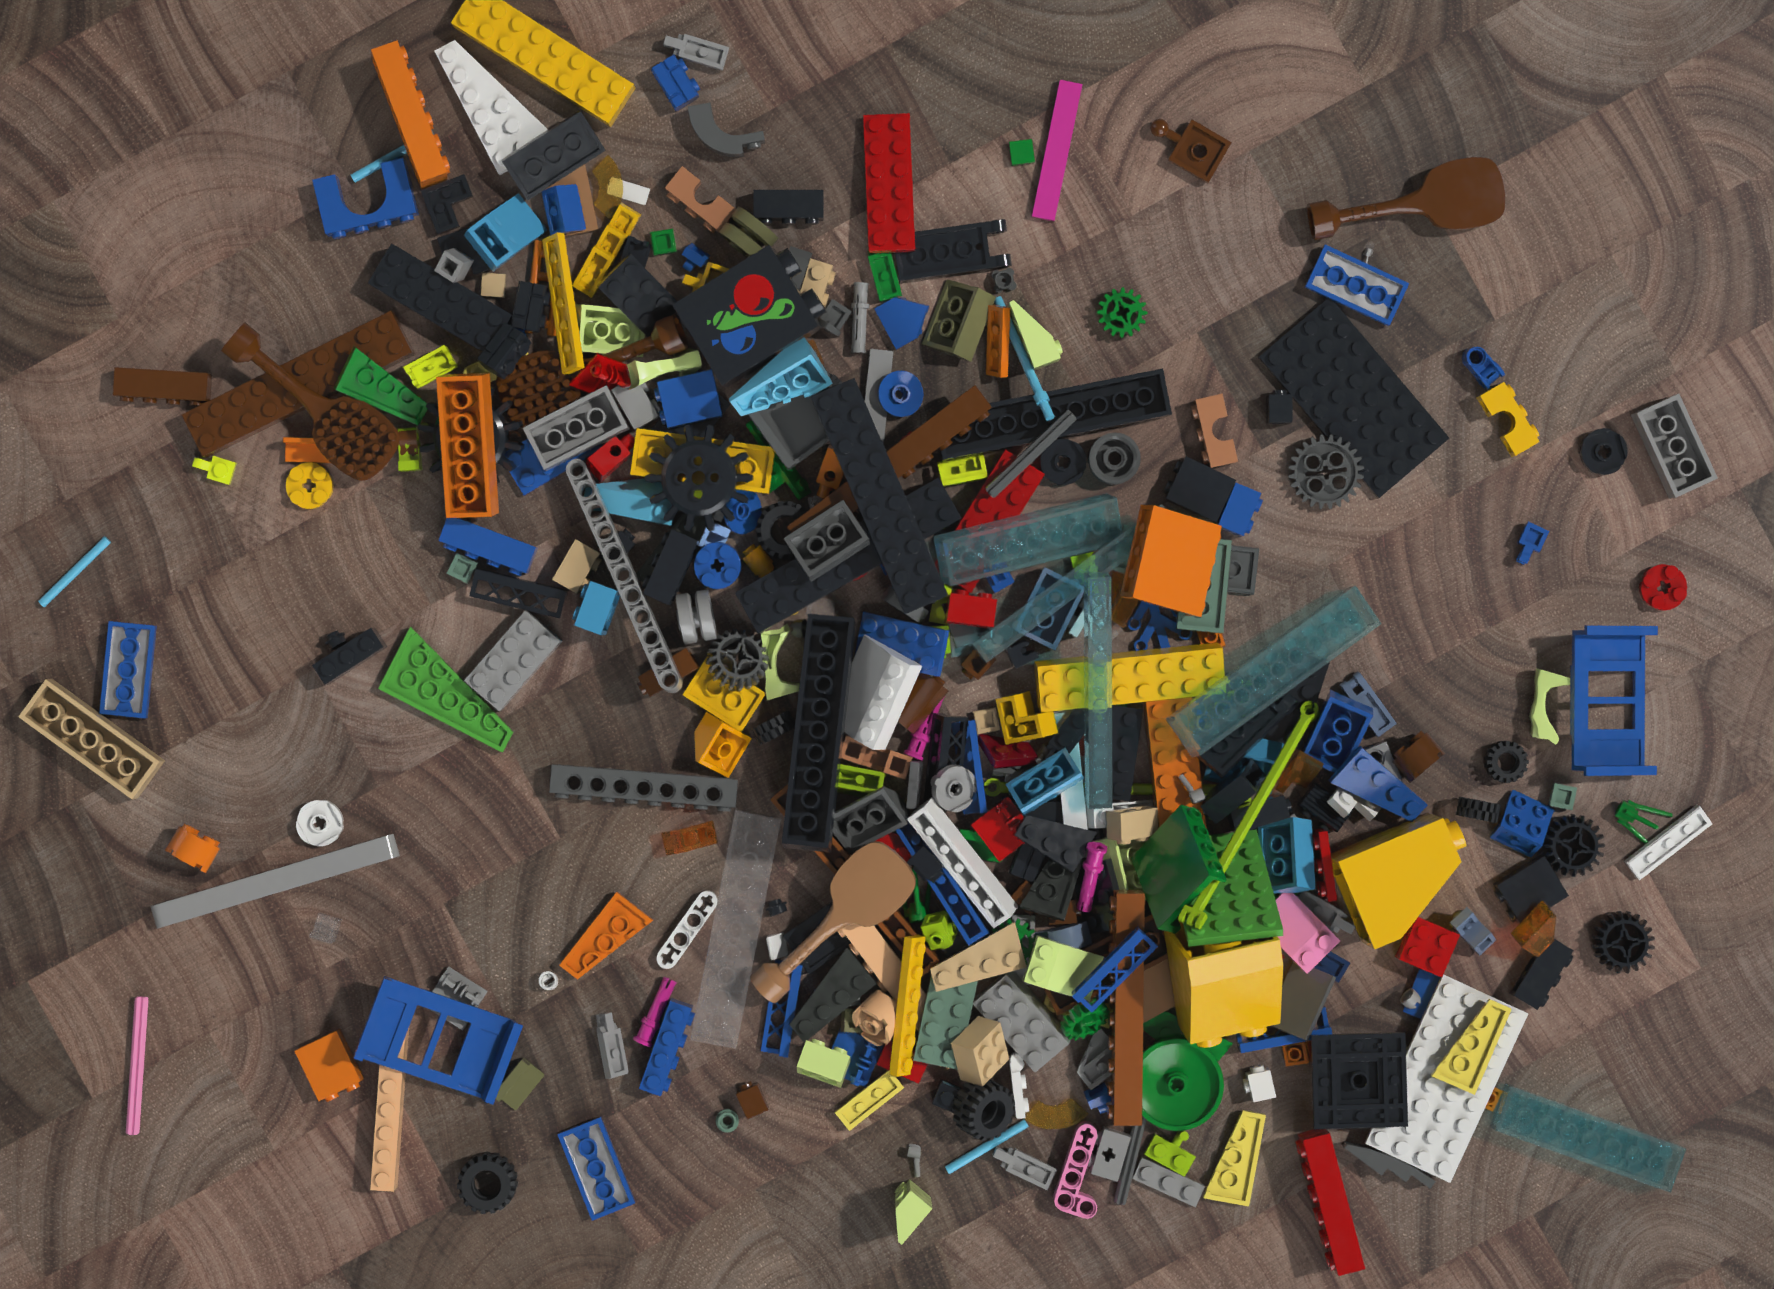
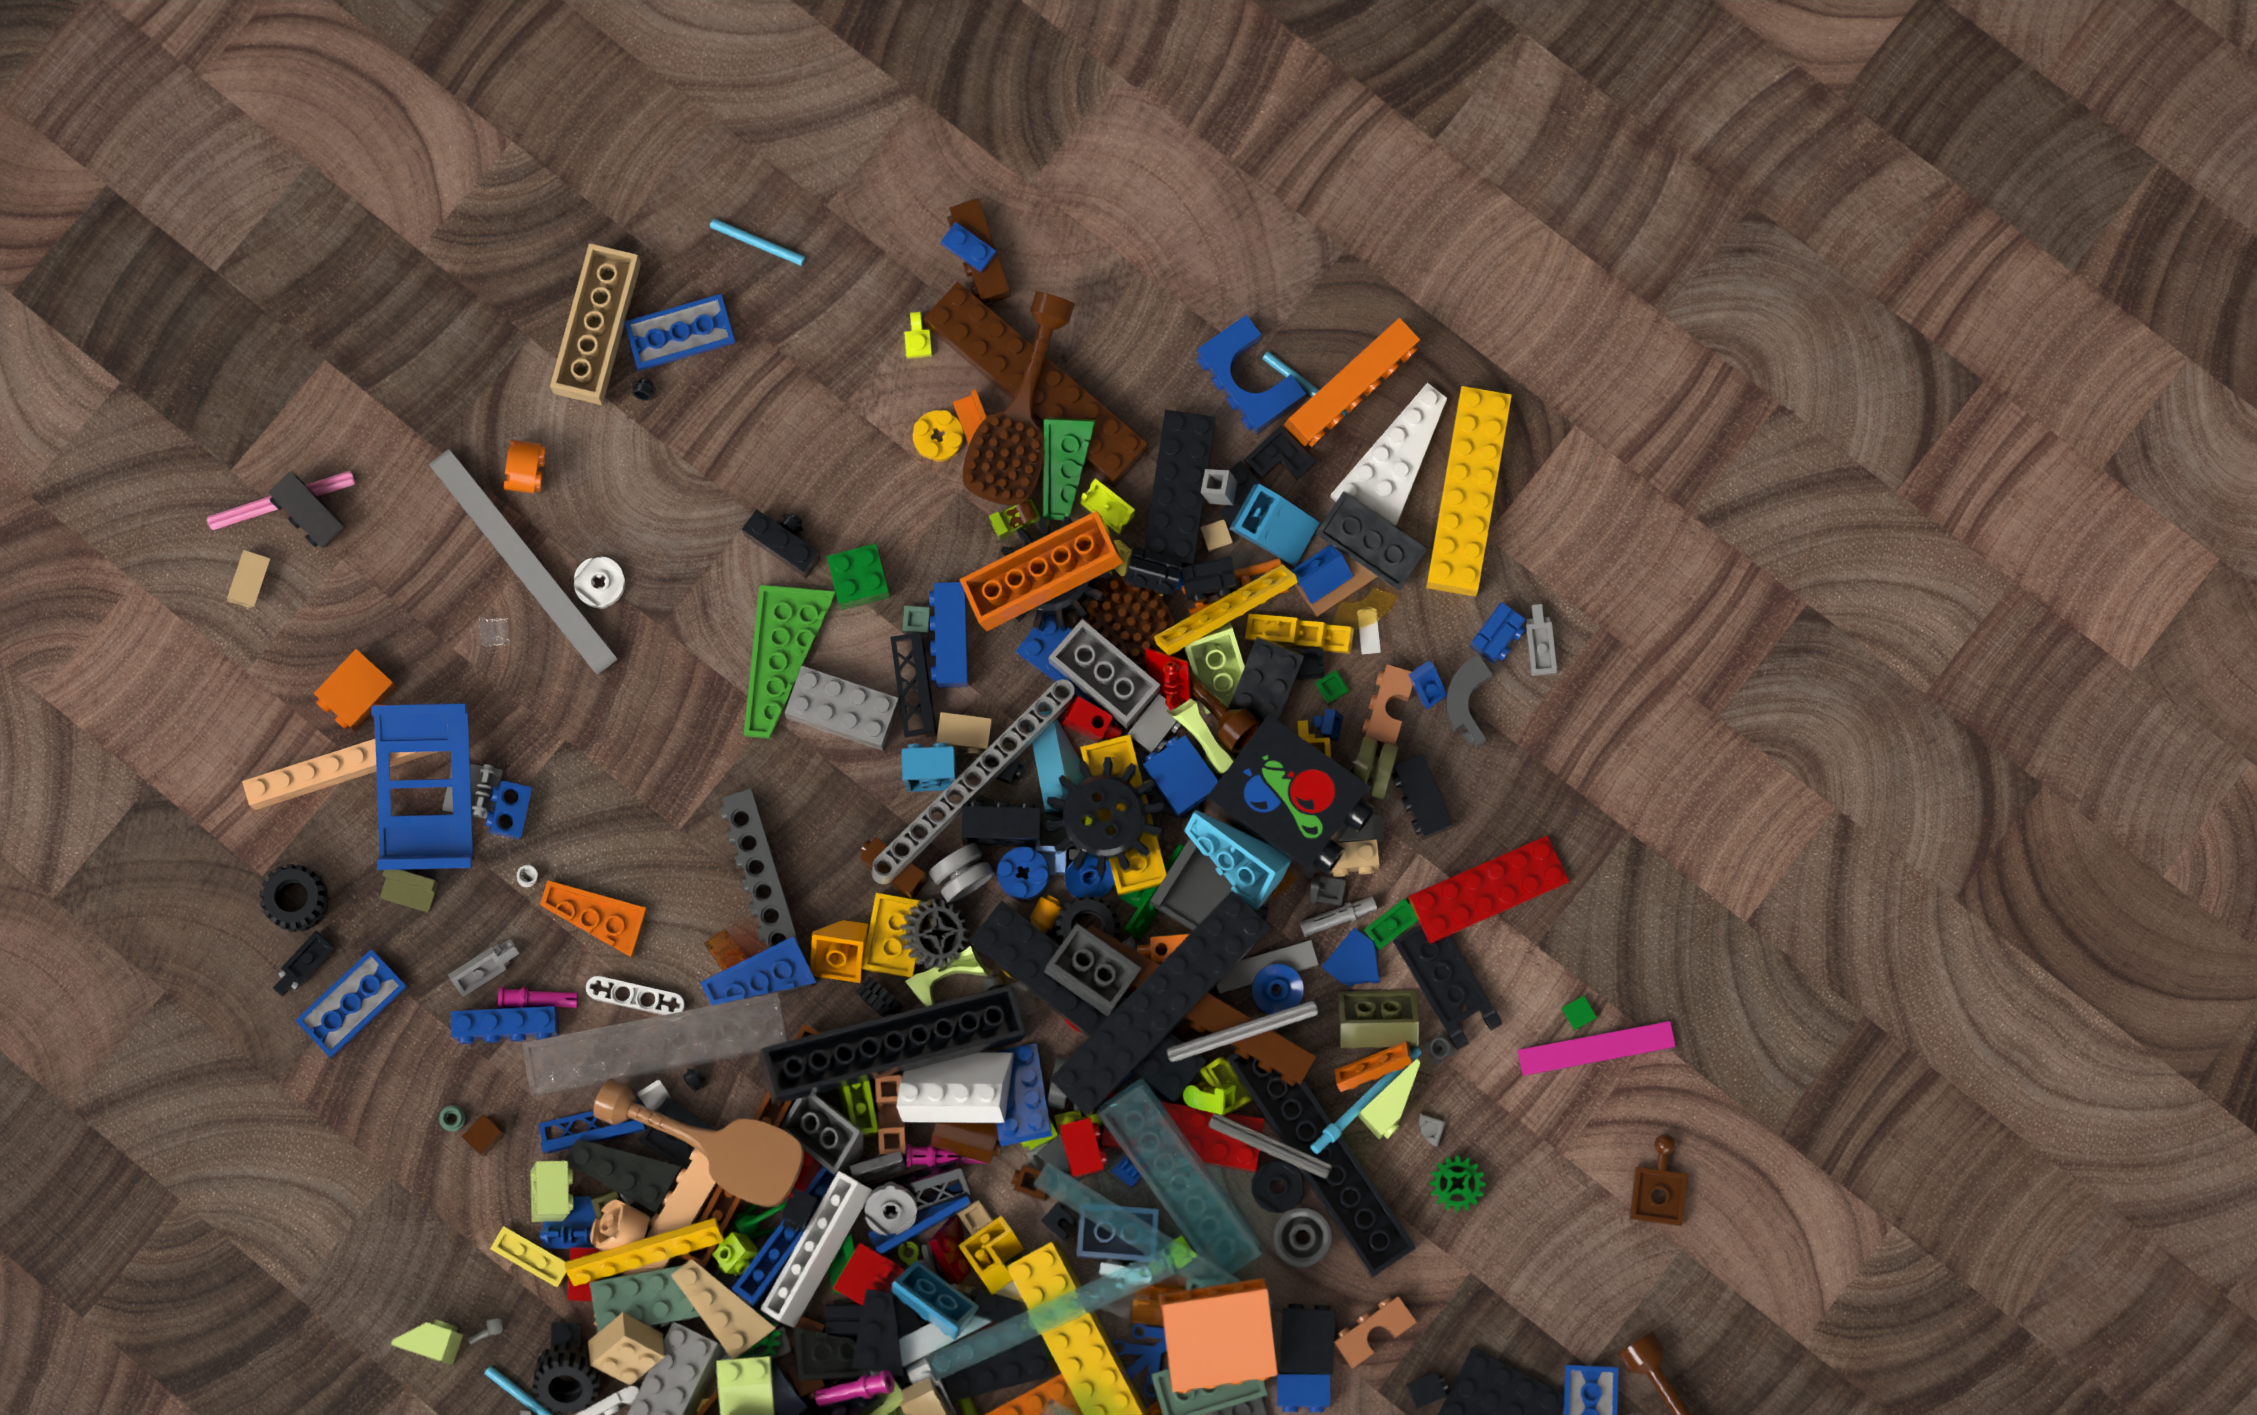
camera: 70 degrees right, 10 degrees down
(155, 393) = (968, 247): none -> blue plate
(155, 1048) = (306, 510): none -> black brick
(165, 720) = (643, 389): none -> black plate
(195, 1119) = (248, 579): none -> tan hinge
(405, 602) = (858, 576): none -> green brick
(489, 969) = (515, 812): none -> blue brick
(546, 1194) = (303, 963): none -> black hinge
(696, 160) = (1427, 684): none -> blue plate
(713, 816) = (766, 972): none -> blue wing
(929, 437) = (1242, 1031): none -> light grey axle
(970, 487) = (1210, 1098): none -> lime leg
(1067, 315) = (1431, 1129): none -> light grey tile

